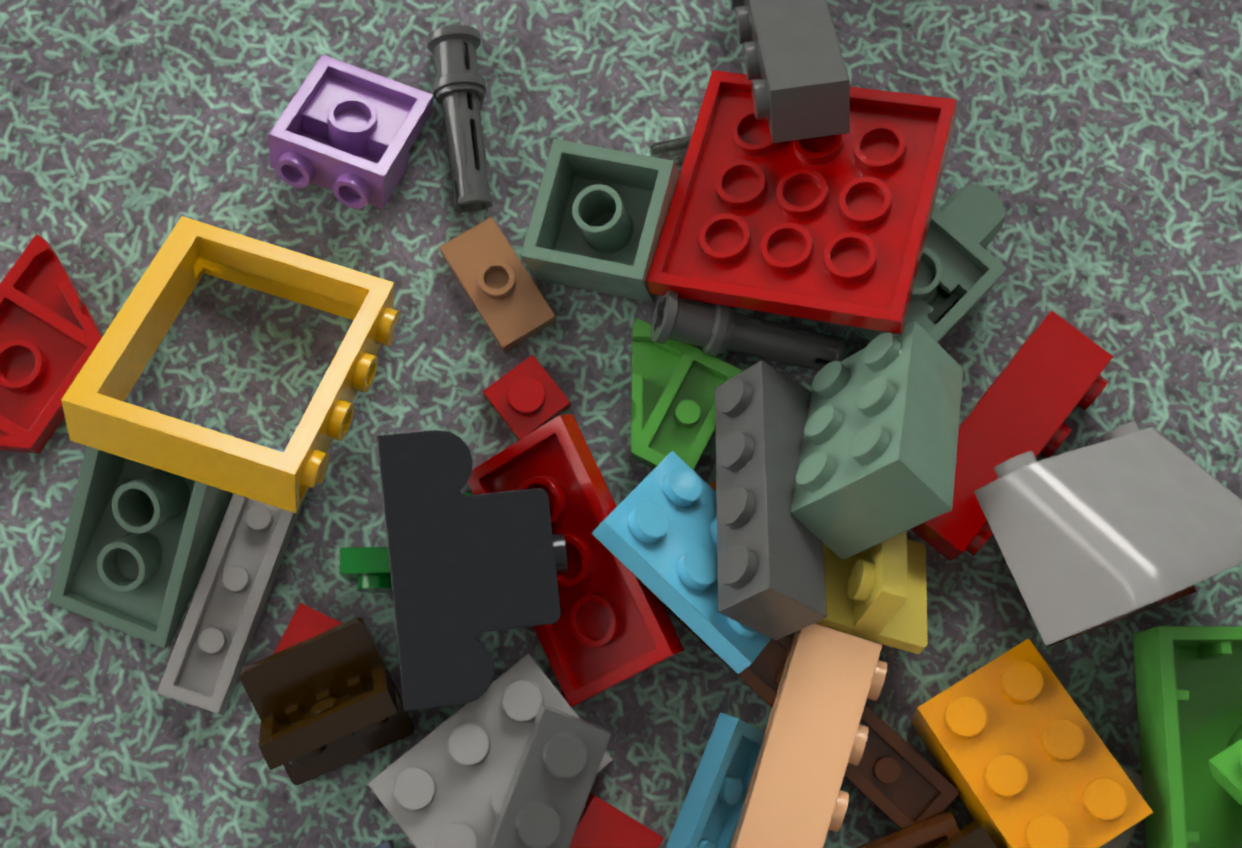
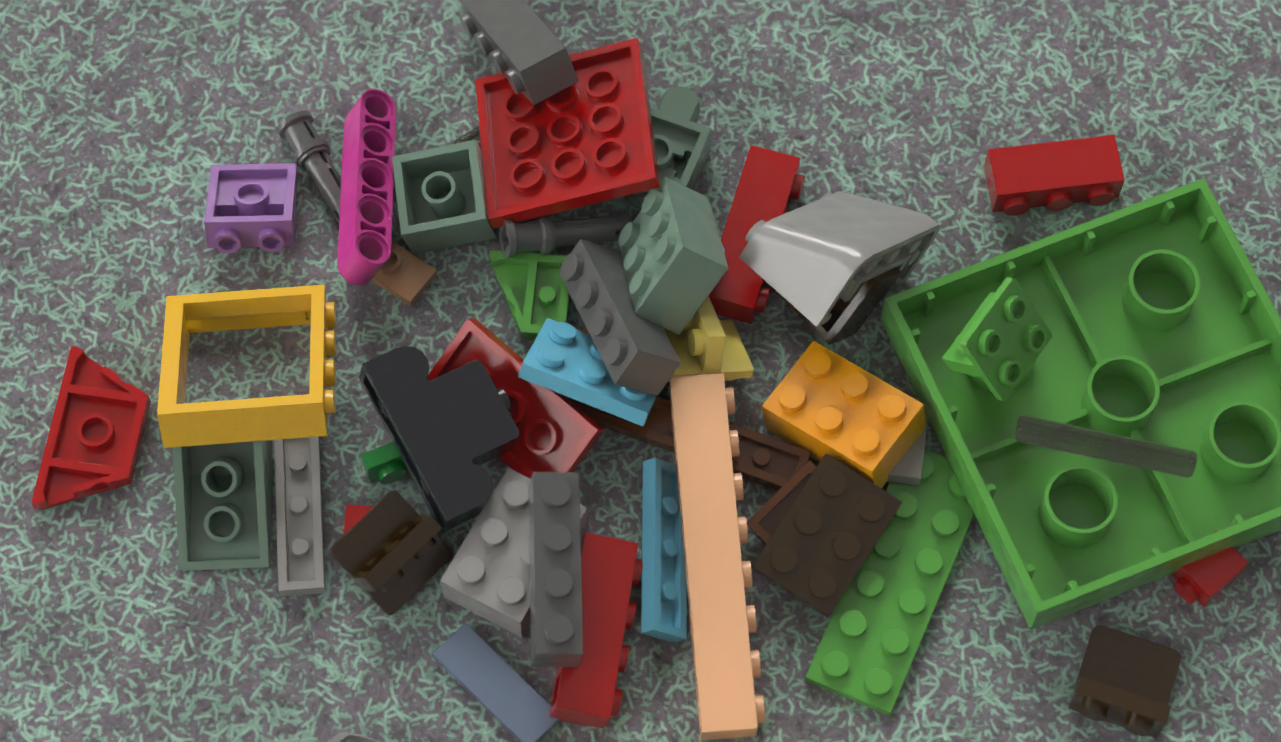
camera: 20 degrees left, 10 degrees down
(488, 182) = (366, 187): none -> dark pink beam
(526, 398) = (437, 327): red plate -> none

